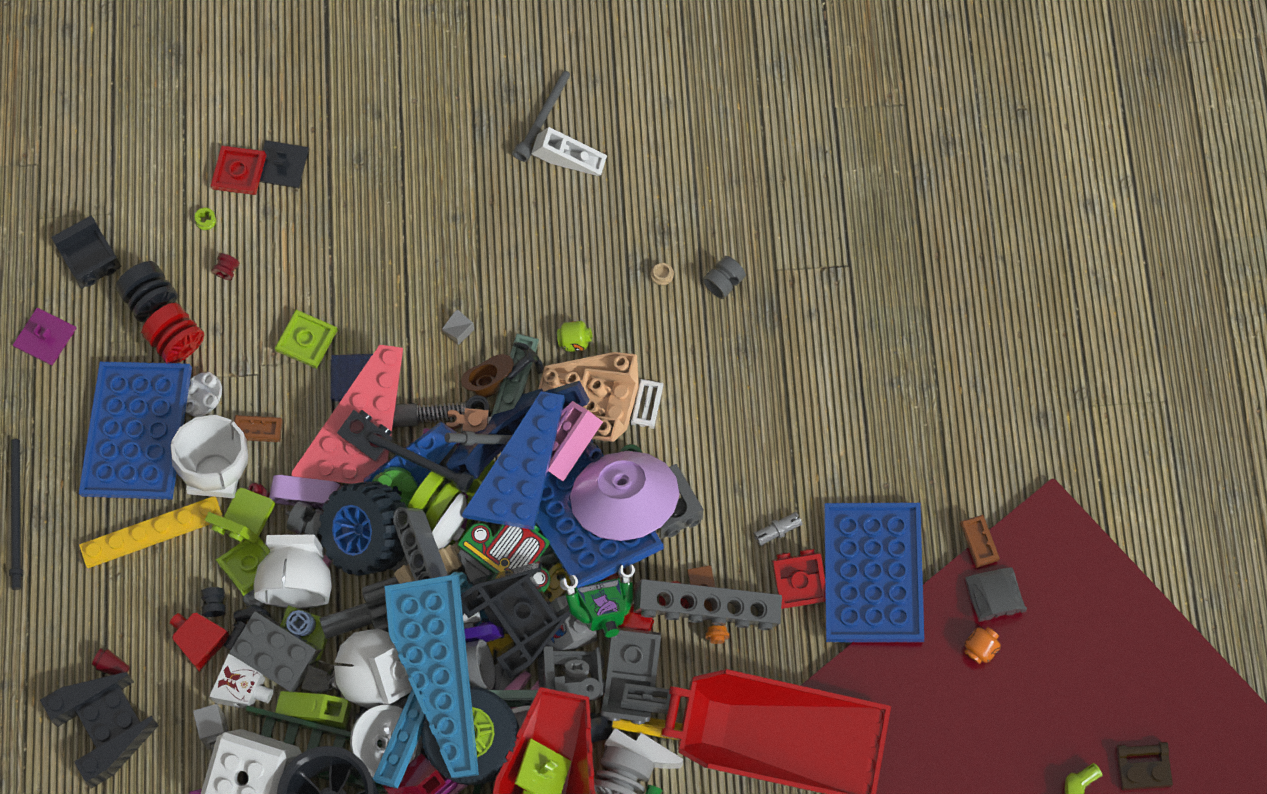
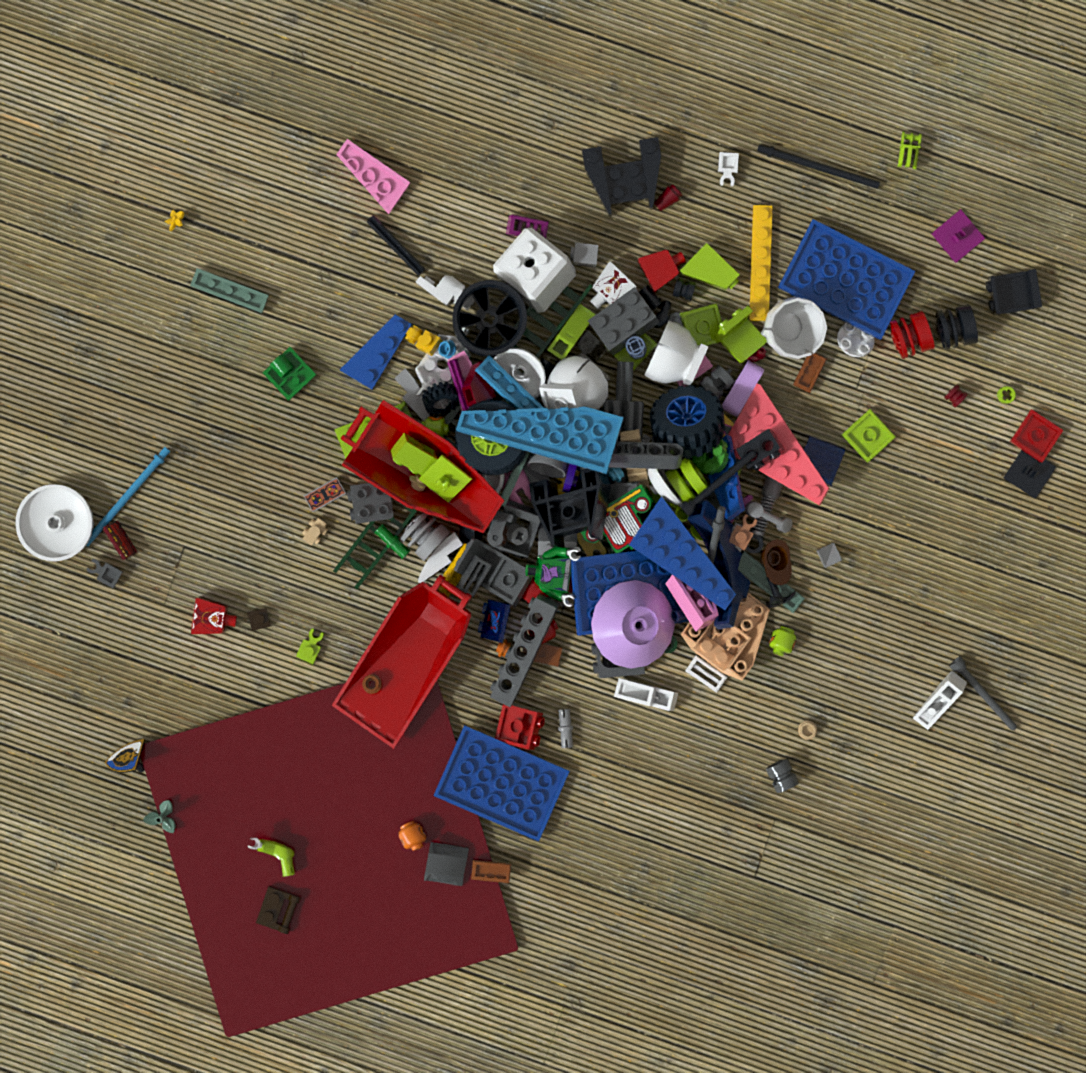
camera: 110 degrees right, 20 degrees up
(48, 611) = (728, 164): none -> white plate
(177, 581) = (710, 269): none -> lime slope
(442, 389) = (756, 510): none -> light grey bar
(688, 654) = (495, 620): none -> clear blue slope
(699, 457) = (646, 694): none -> white slope
(823, 758) = (367, 680): none -> dark orange plate

